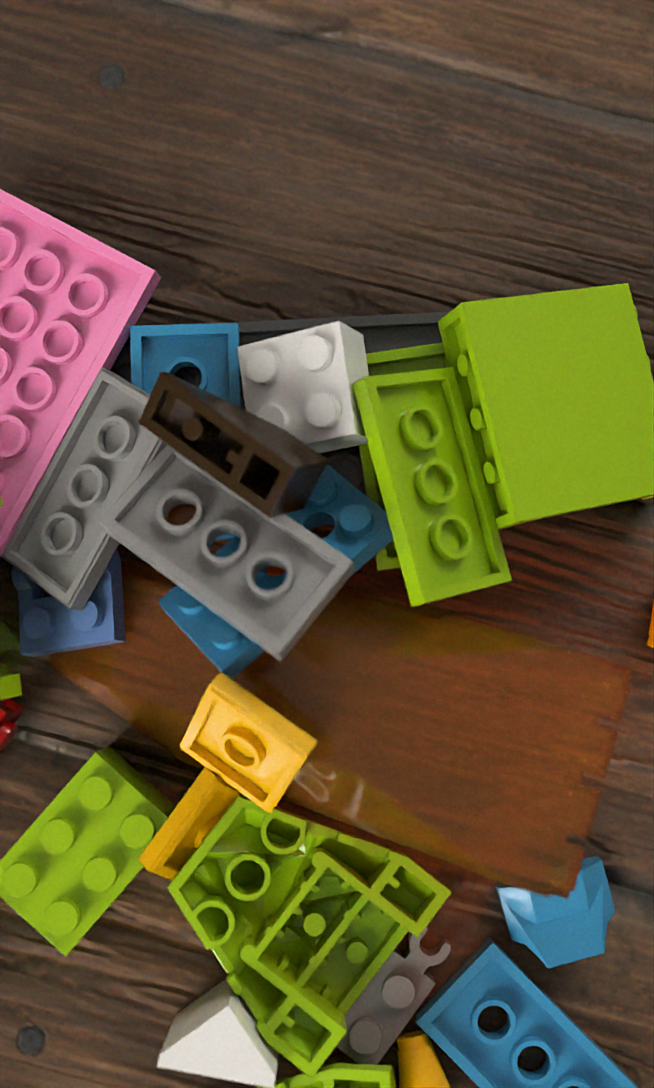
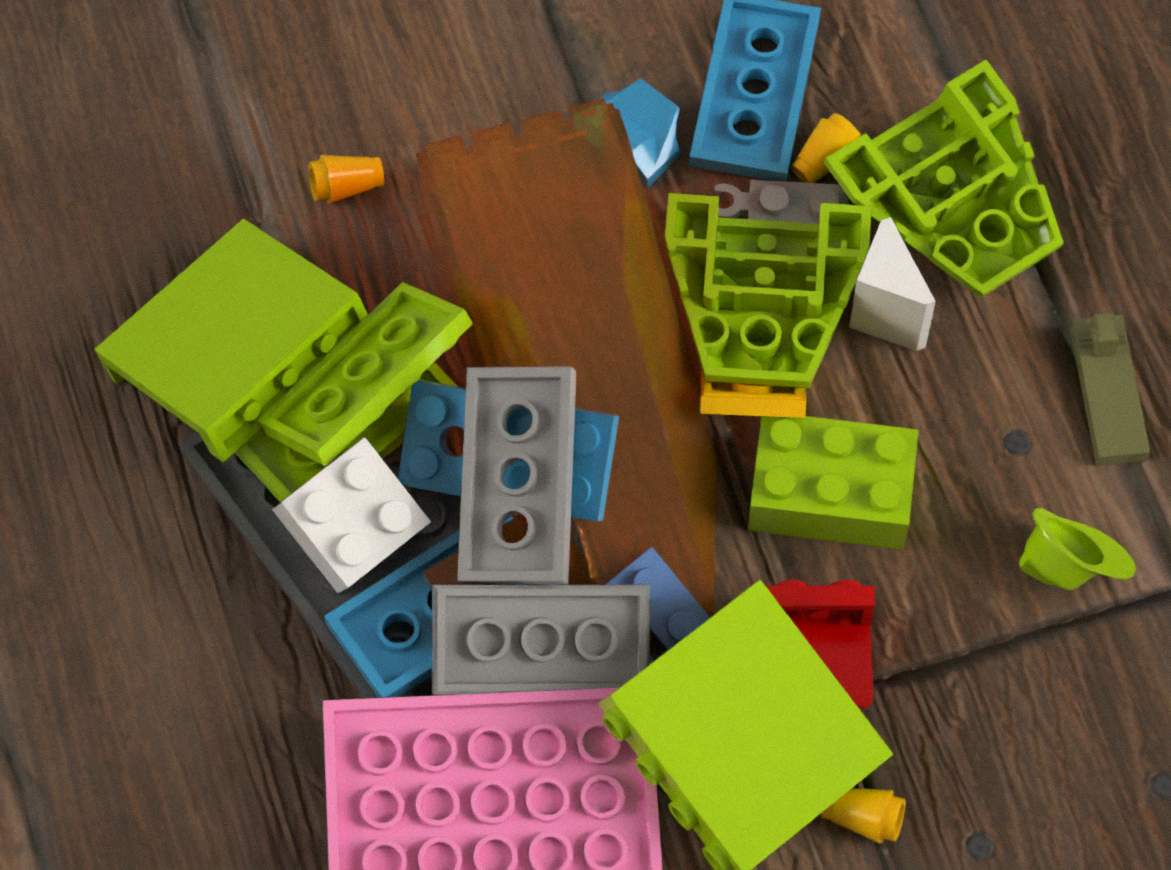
camera: 125 degrees left, 20 degrees down
(234, 446) = (435, 514): dark brown slope -> none
(246, 742) = (658, 379): yellow tile -> none

